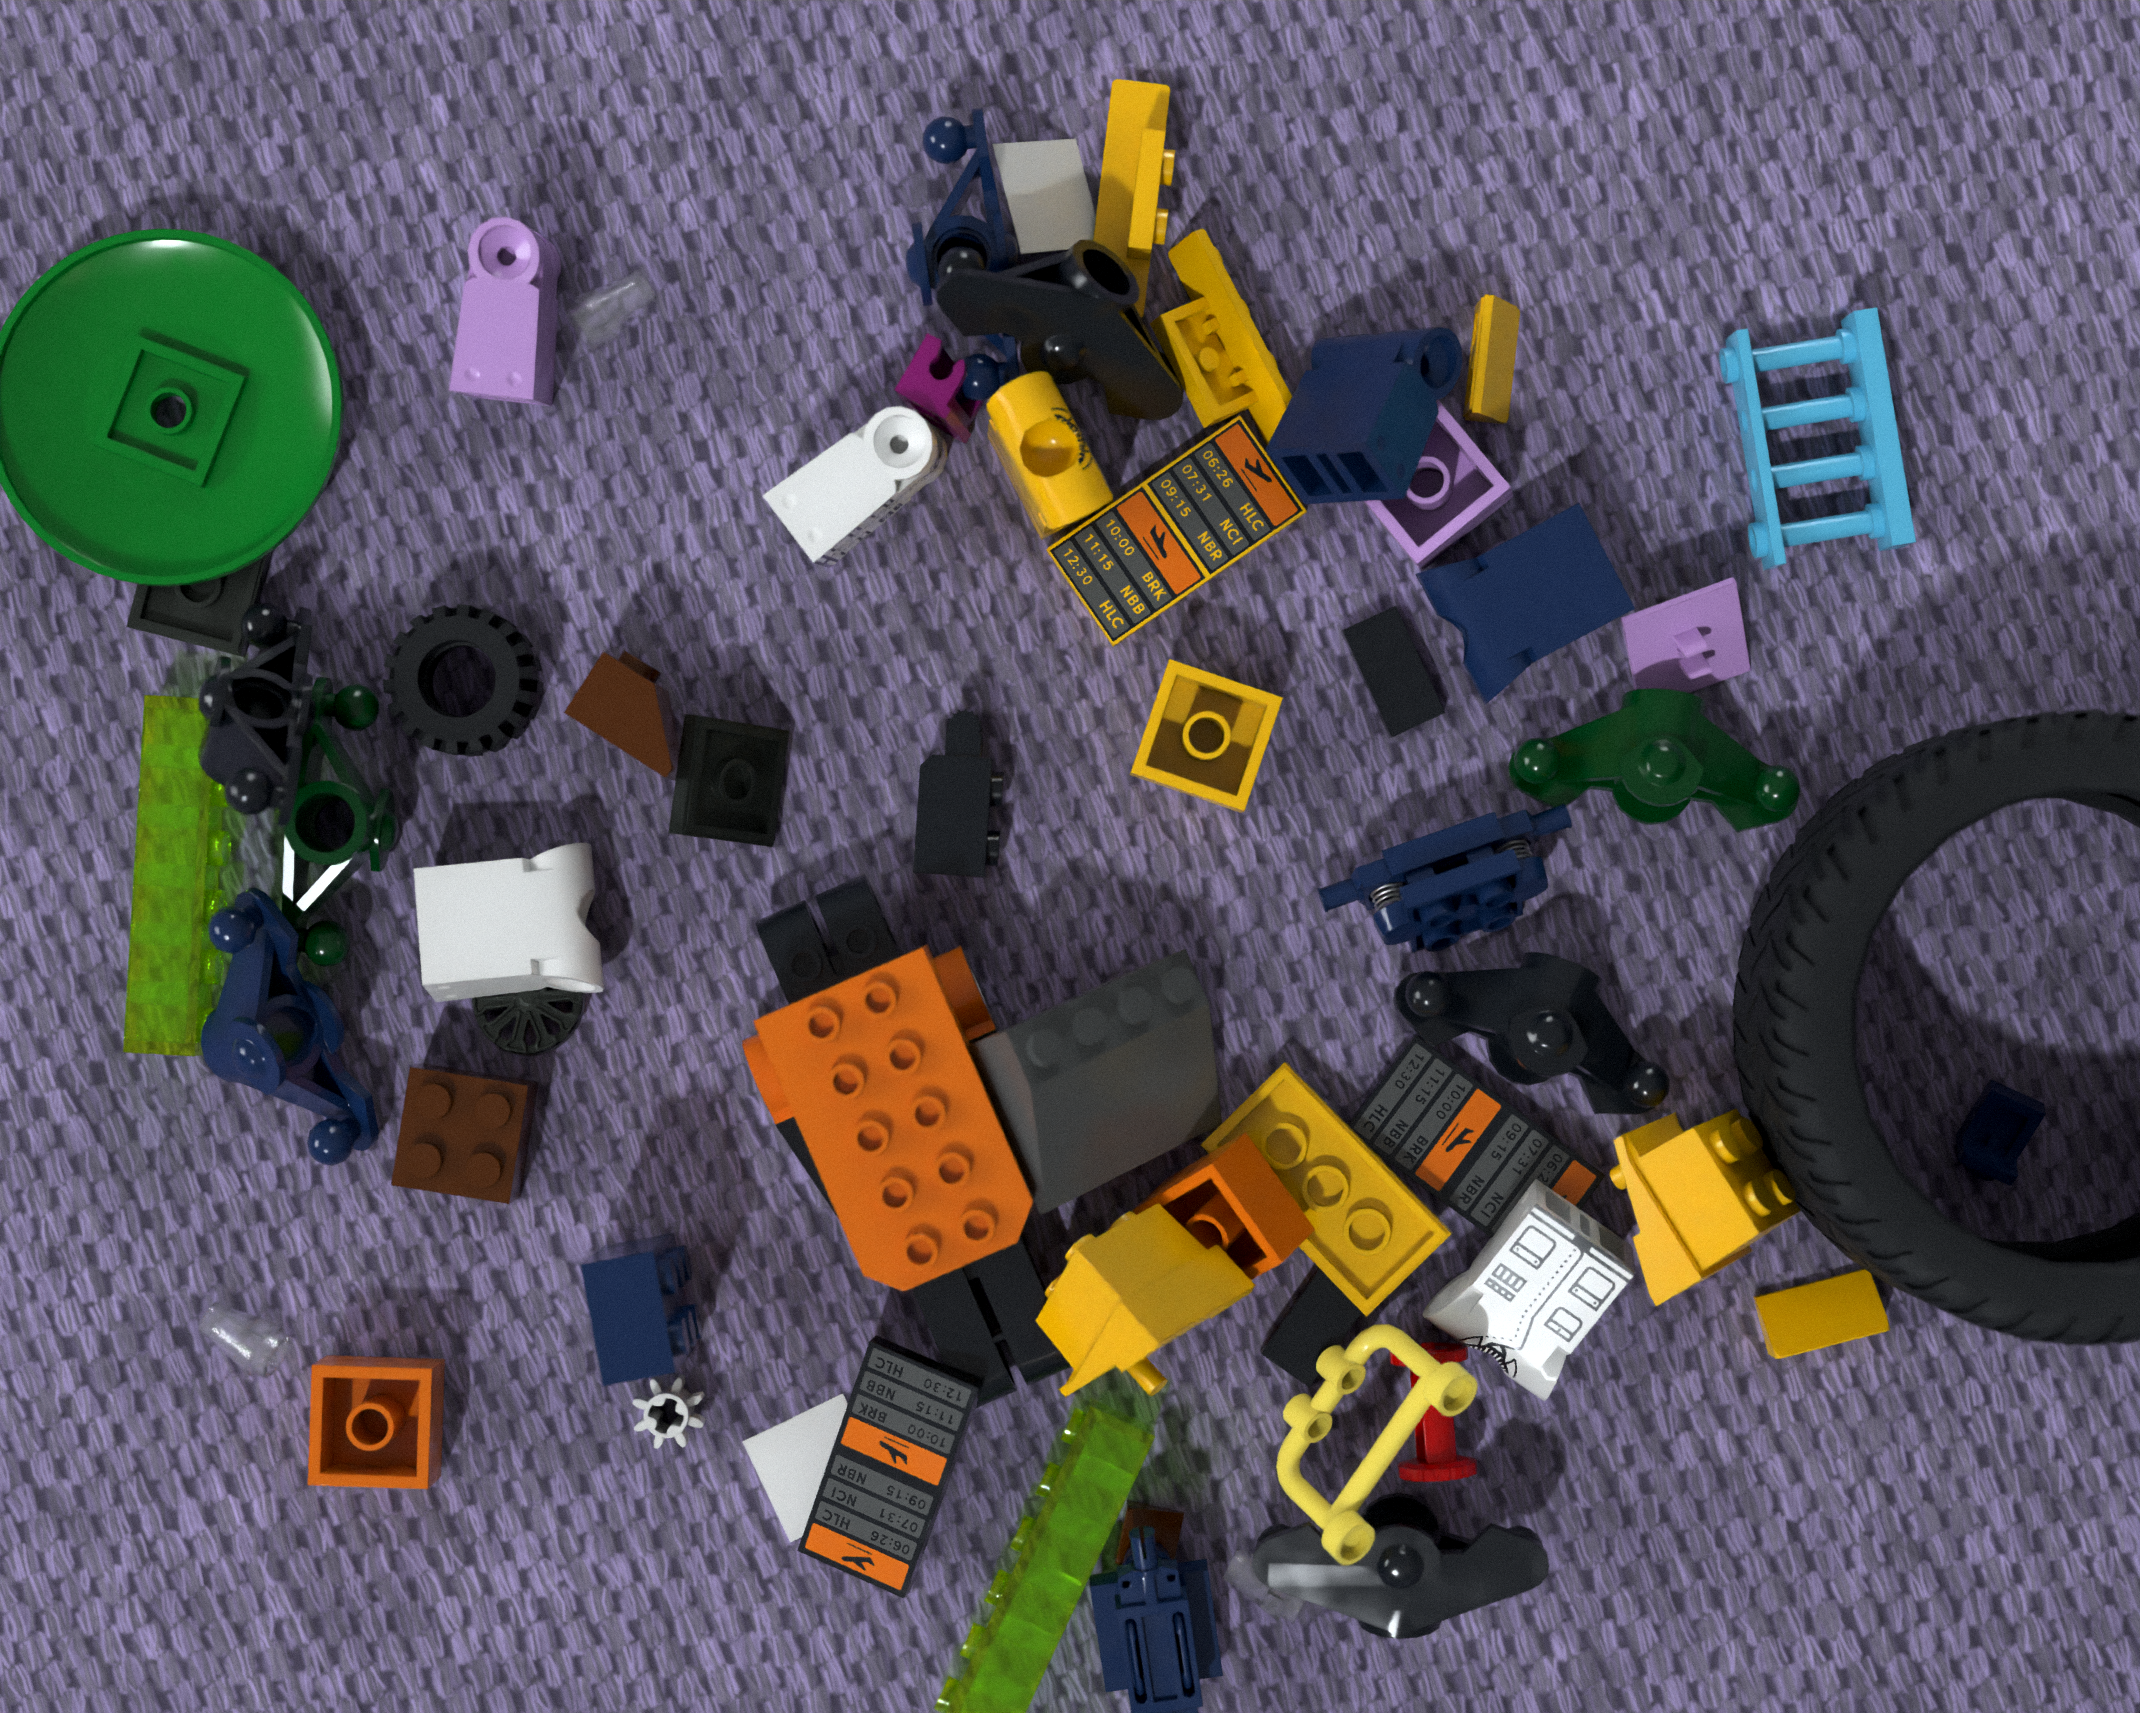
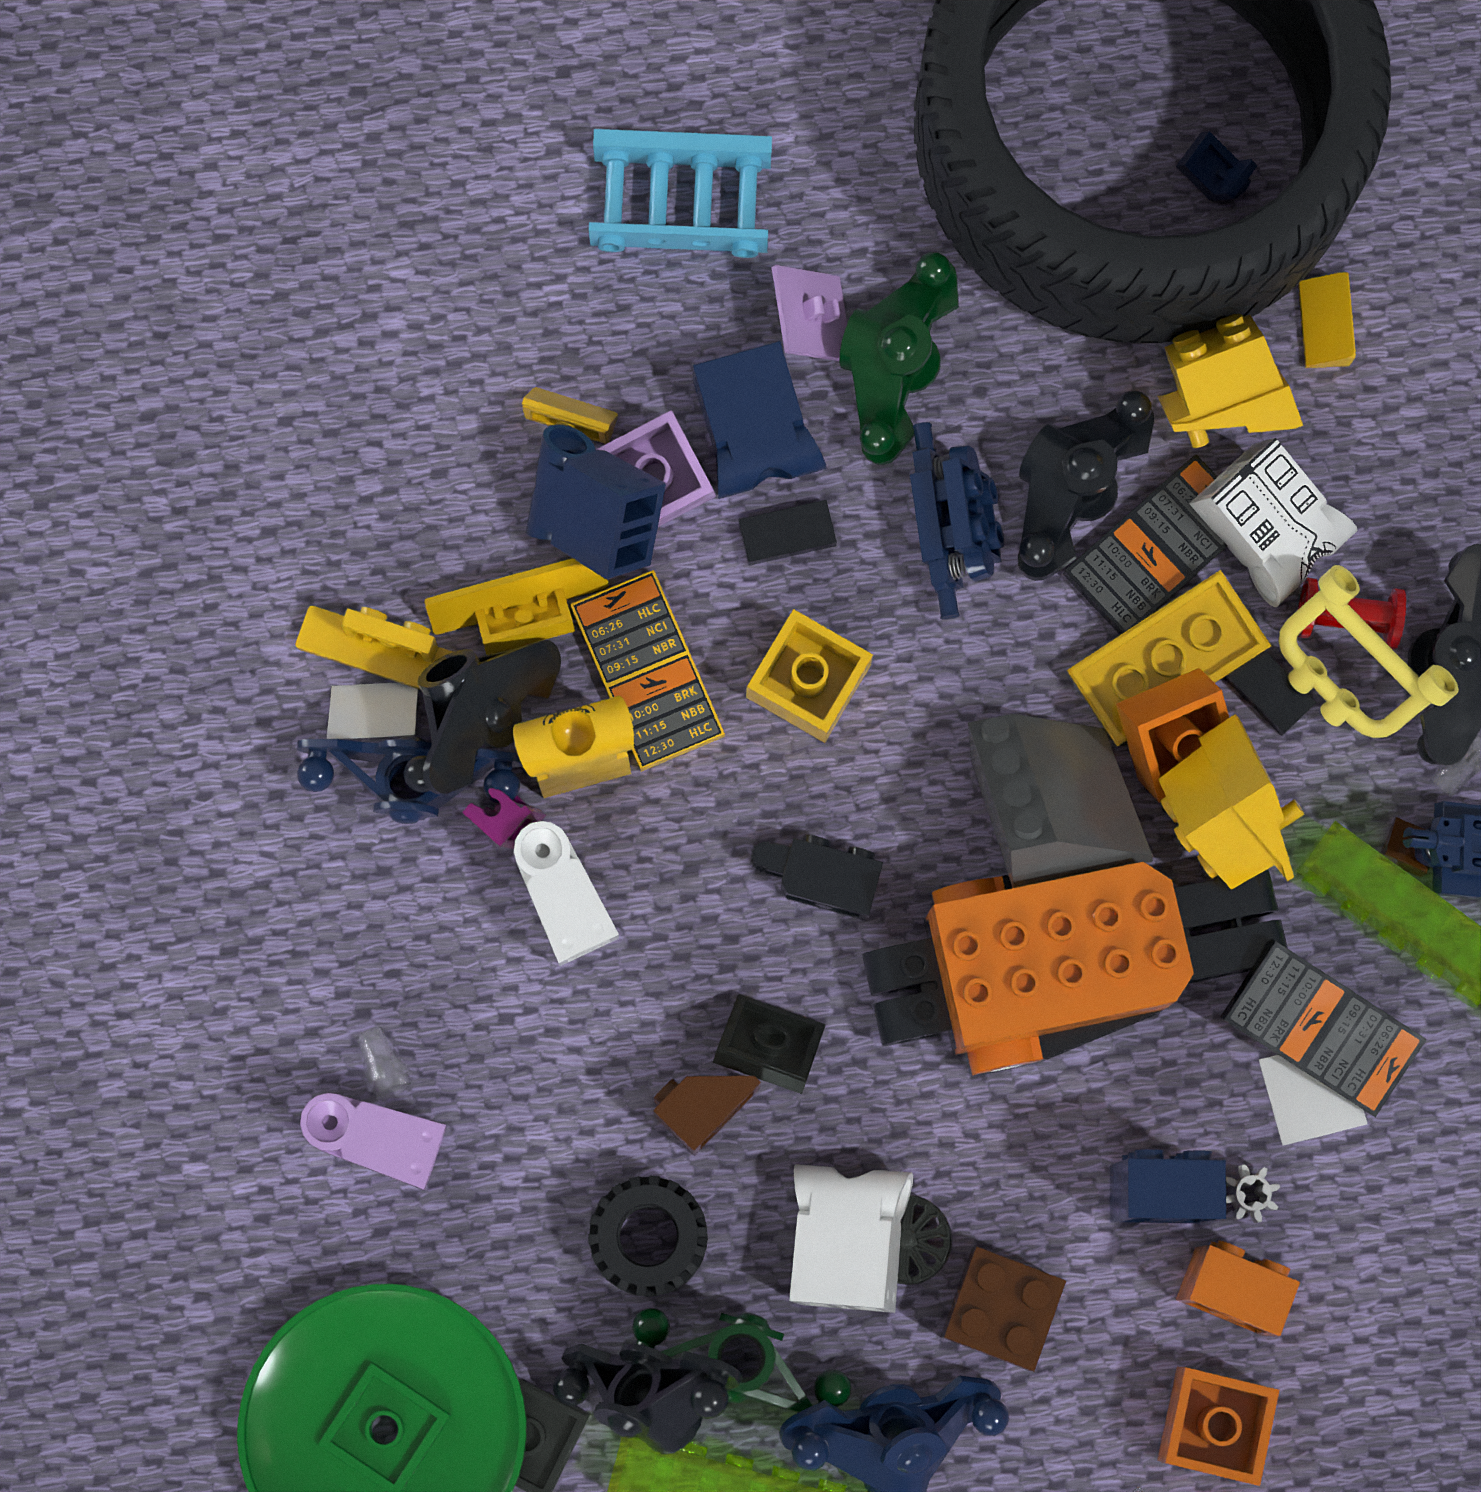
camera: 80 degrees left, 10 degrees down
(542, 1417) = (1238, 1290): none -> orange brick

